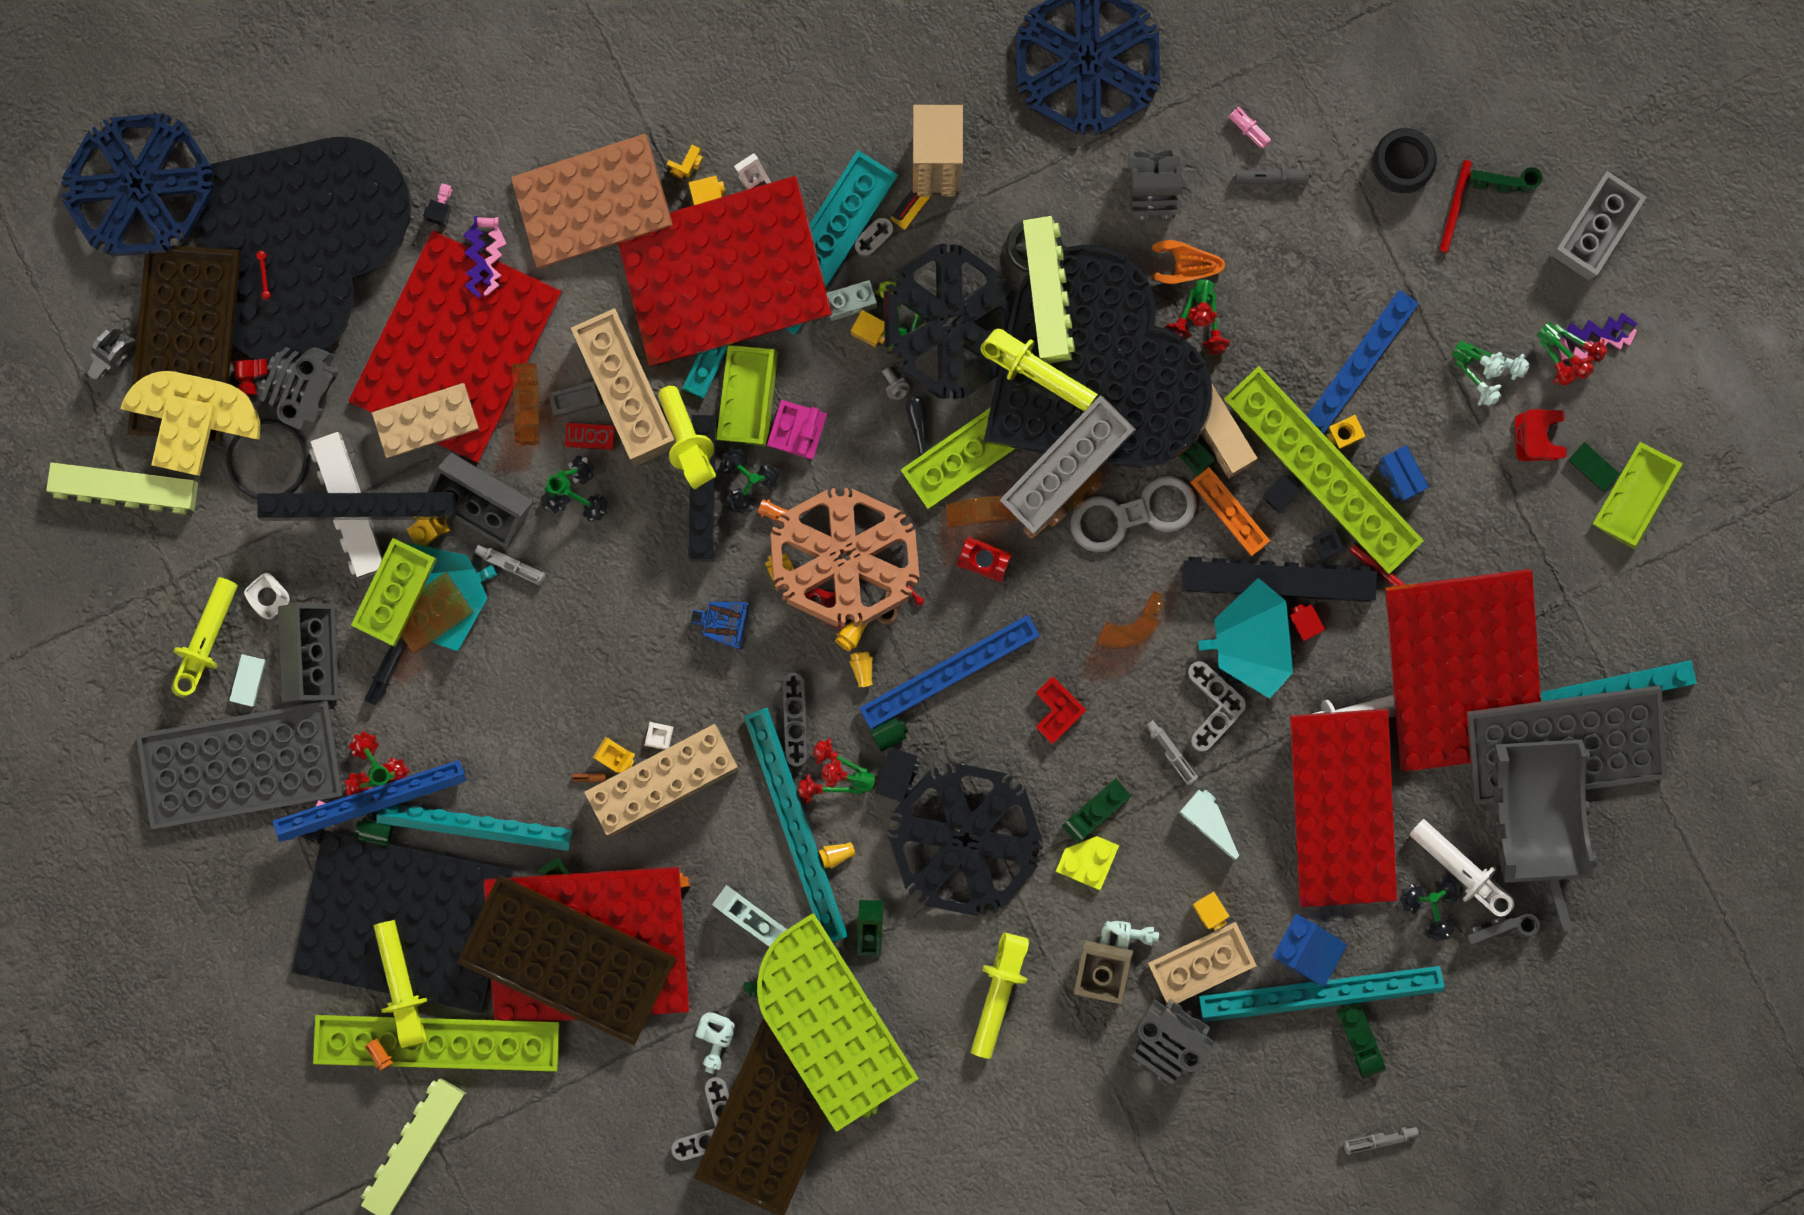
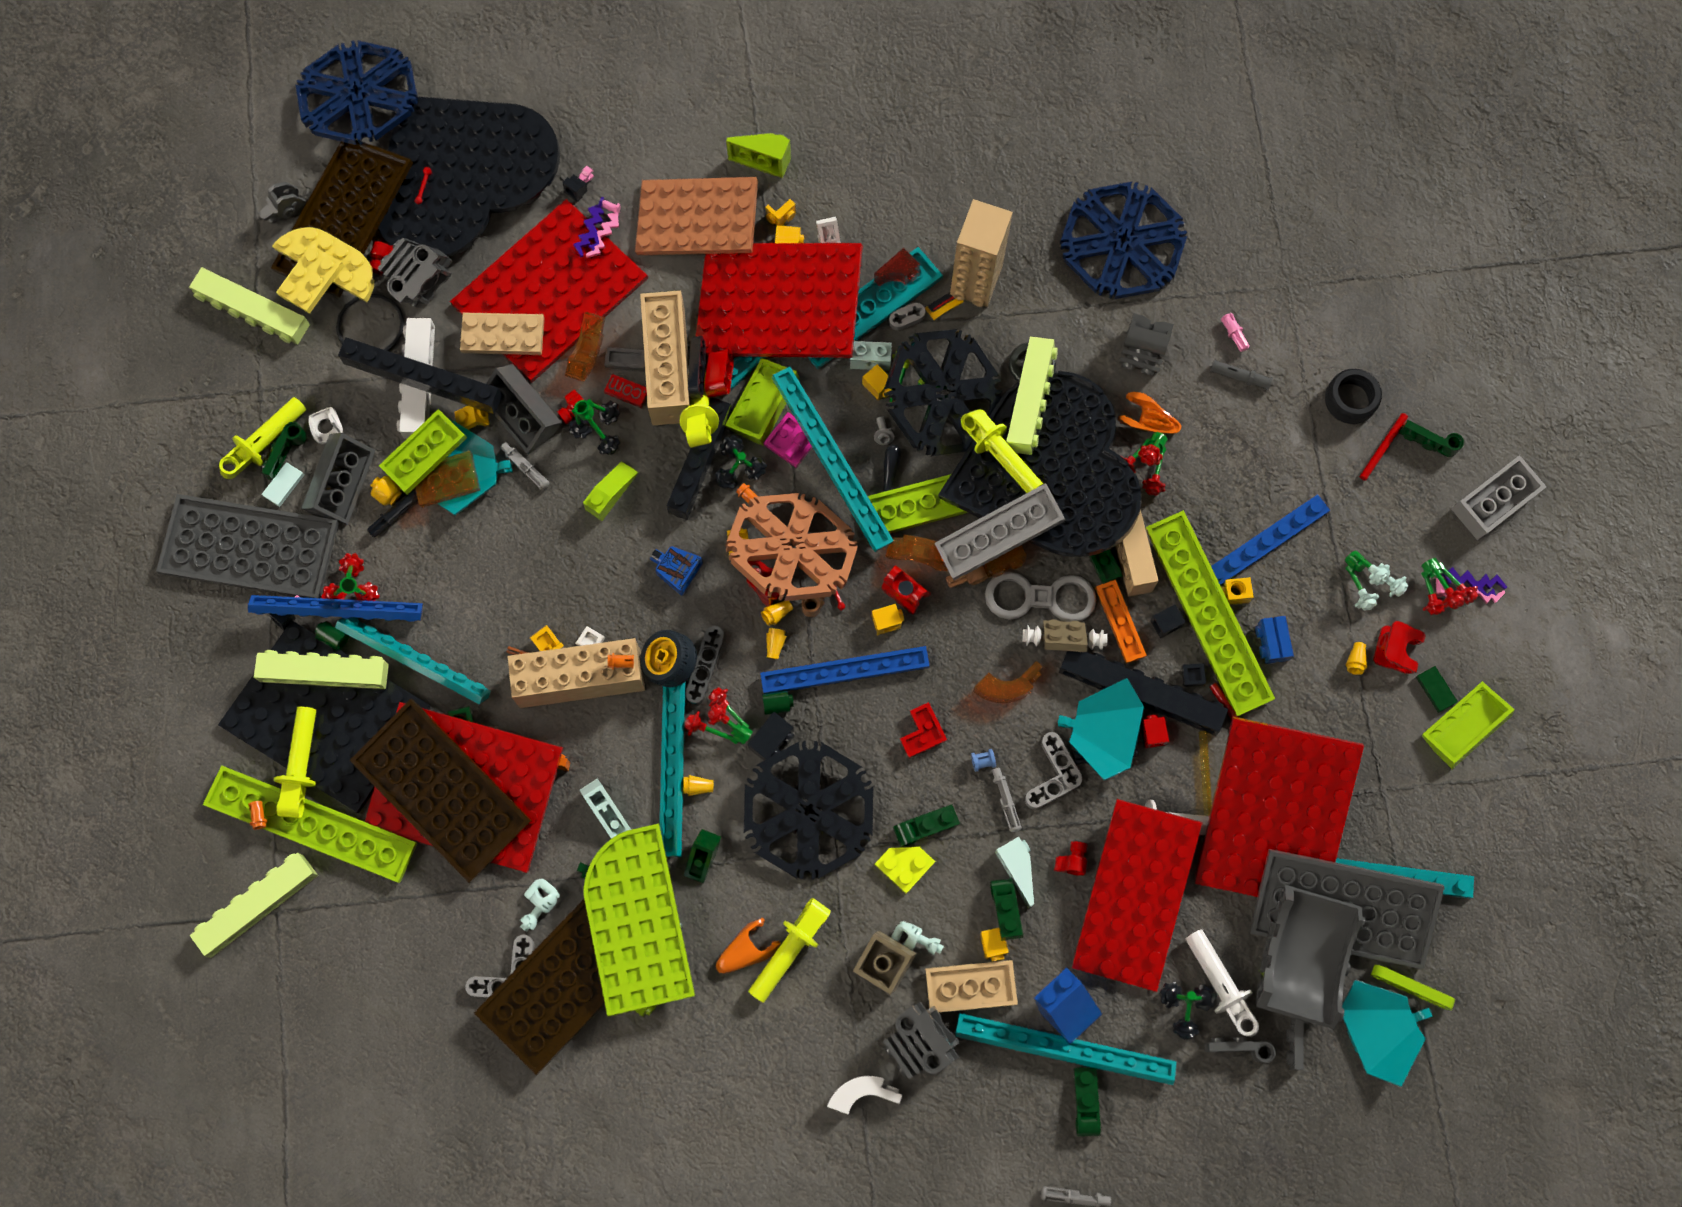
camera: 20 degrees right, 10 degrees down
(228, 642) = (281, 448): none -> dark green plate
(366, 648) = (385, 490): none -> yellow head
(382, 875) = (321, 670): none -> yellowish green brick
(539, 476) = (571, 399): none -> red piece
(616, 558) = (609, 490): none -> lime slope
(641, 98) = (761, 152): none -> lime slope
(663, 388) = (697, 367): none -> black beam
(689, 384) = (719, 373): none -> red beam
(708, 757) = (620, 661): none -> orange pin
(755, 729) = (668, 658): none -> black wheel
(848, 185) = (901, 268): none -> clear red arch
(852, 441) = (832, 459): none -> teal plate
(949, 1013) = (742, 951): none -> orange animal
(975, 598) = (887, 619): none -> yellow brick
(1121, 1109) = (859, 1087): none -> white arch
(1132, 718) = (983, 760): none -> medium blue bush
(1175, 551) = (1064, 636): none -> dark tan plate
(1211, 870) = (1006, 909): none -> dark green plate
(1267, 795) = (1076, 862): none -> red piece
(1374, 647) = (1205, 772): none -> clear yellow bar
(1498, 464) = (1357, 659): none -> yellow cone
(1643, 858) = (1383, 1031): none -> teal panel
(1661, 801) = (1412, 987): none -> lime beam

